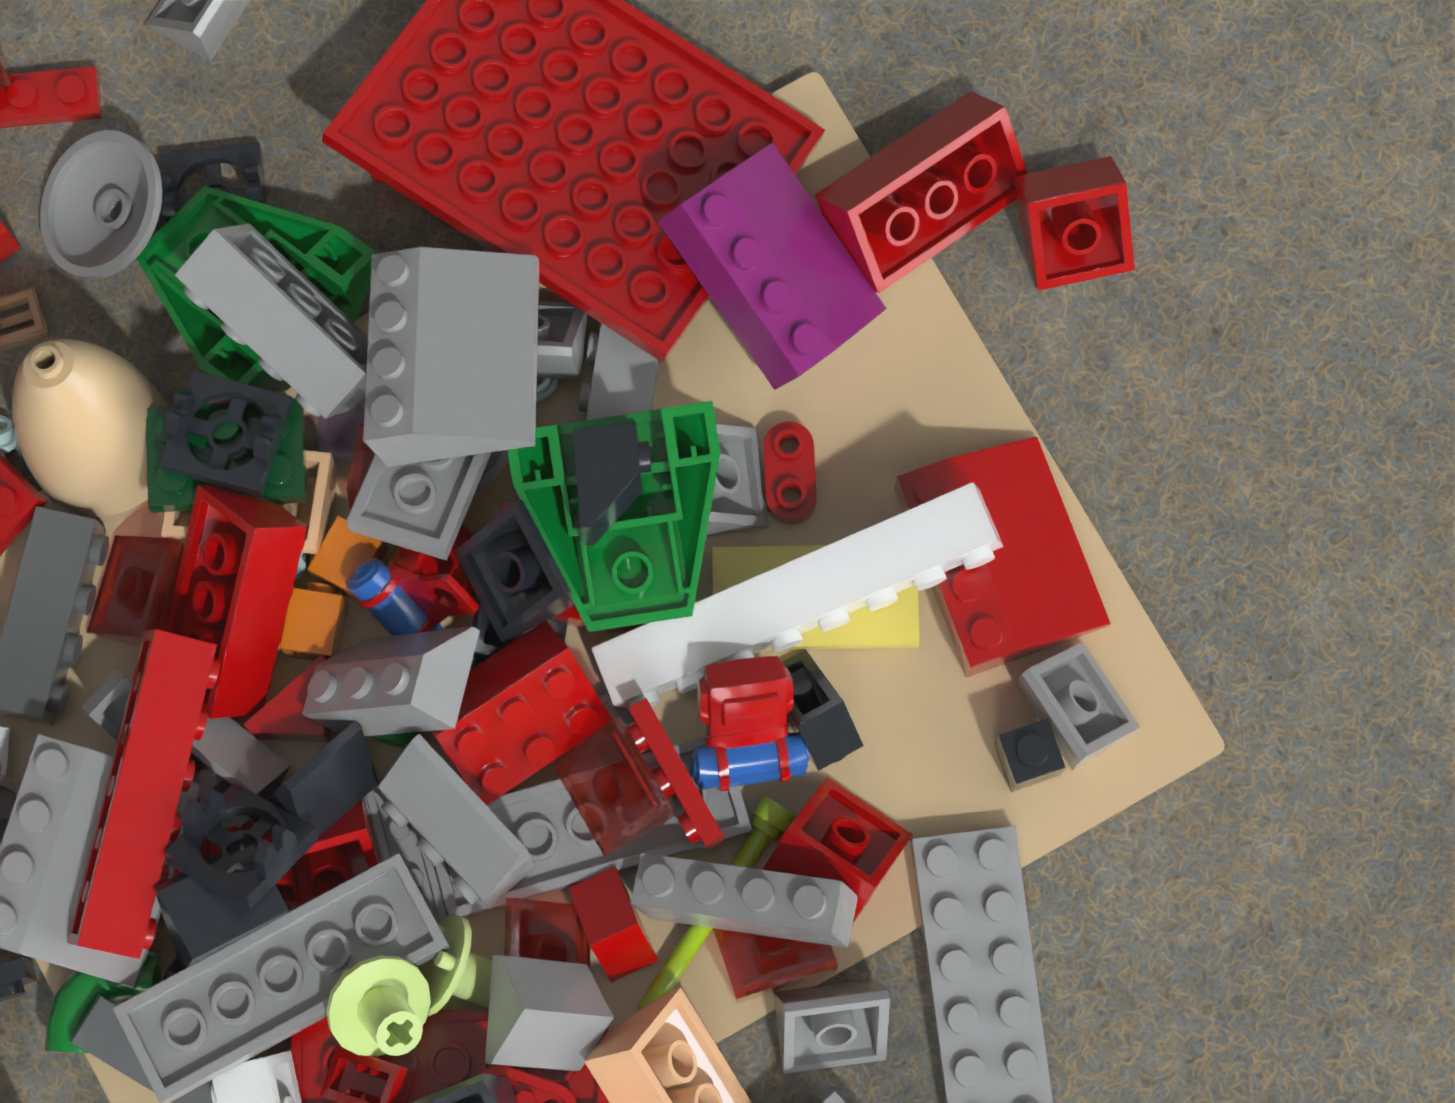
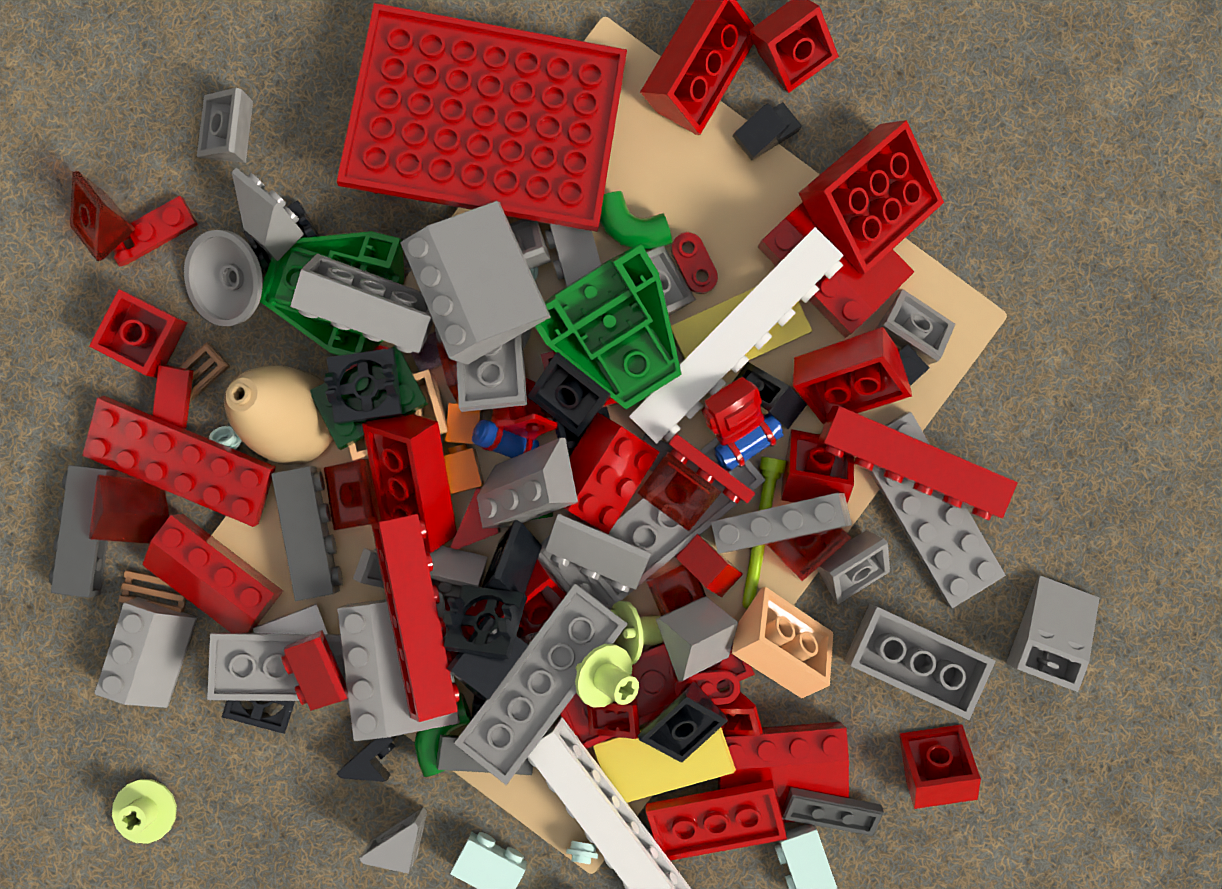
camera: 25 degrees left, 10 degrees up
(200, 144) = (265, 215): none -> light grey slope
(607, 475) = (600, 314): black slope -> none
(709, 377) = (632, 230): none -> green cylinder
(773, 266) = (635, 146): magenta slope -> none
(943, 730) = (852, 374): none -> red slope
(980, 327) = (766, 129): none -> black slope
(988, 901) = (917, 462): none -> red brick
(1093, 485) = (873, 195): none -> red slope

